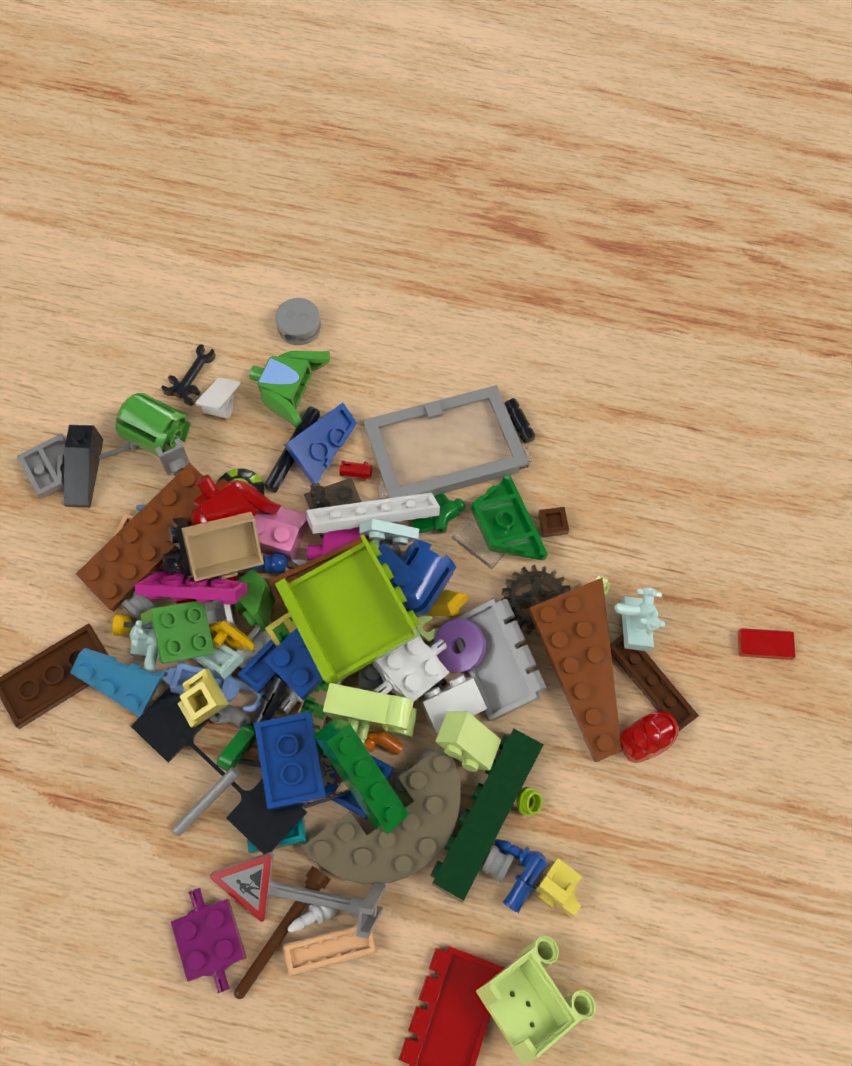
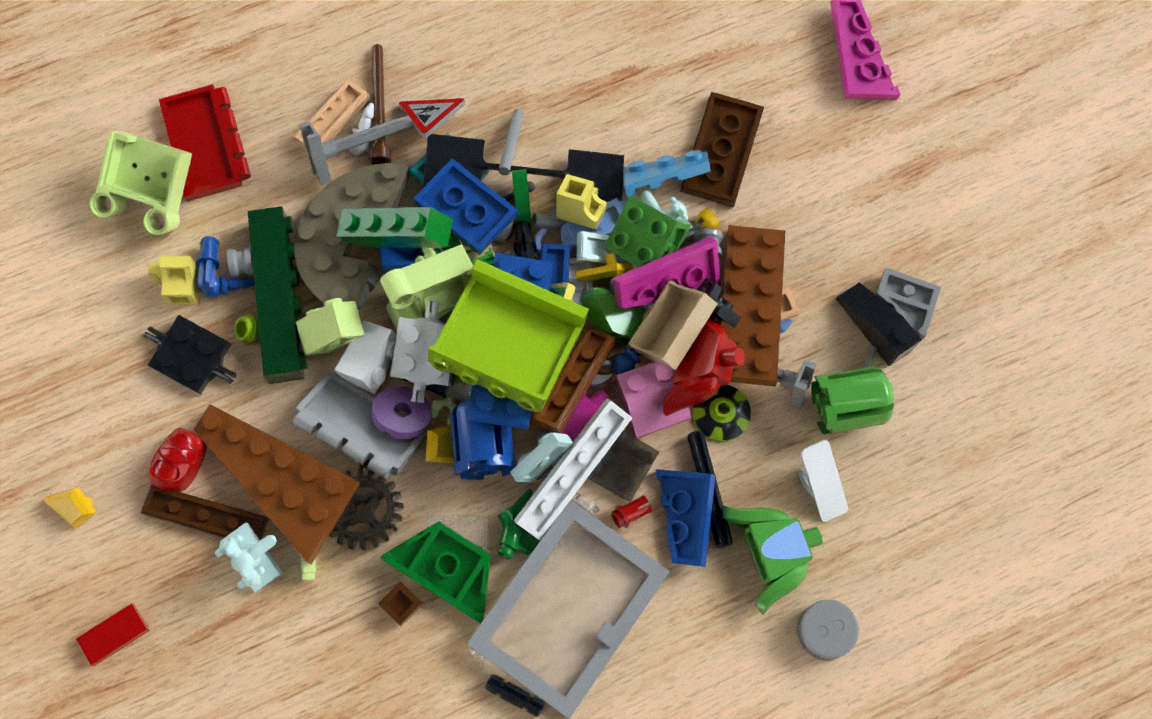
camera: 140 degrees right, 5 degrees up
(185, 388) = (870, 469): black bar -> none
(208, 940) = (429, 63): magenta plate -> none
(588, 817) = (190, 354): none -> black plate
(749, 757) = (72, 506): none -> yellow piece

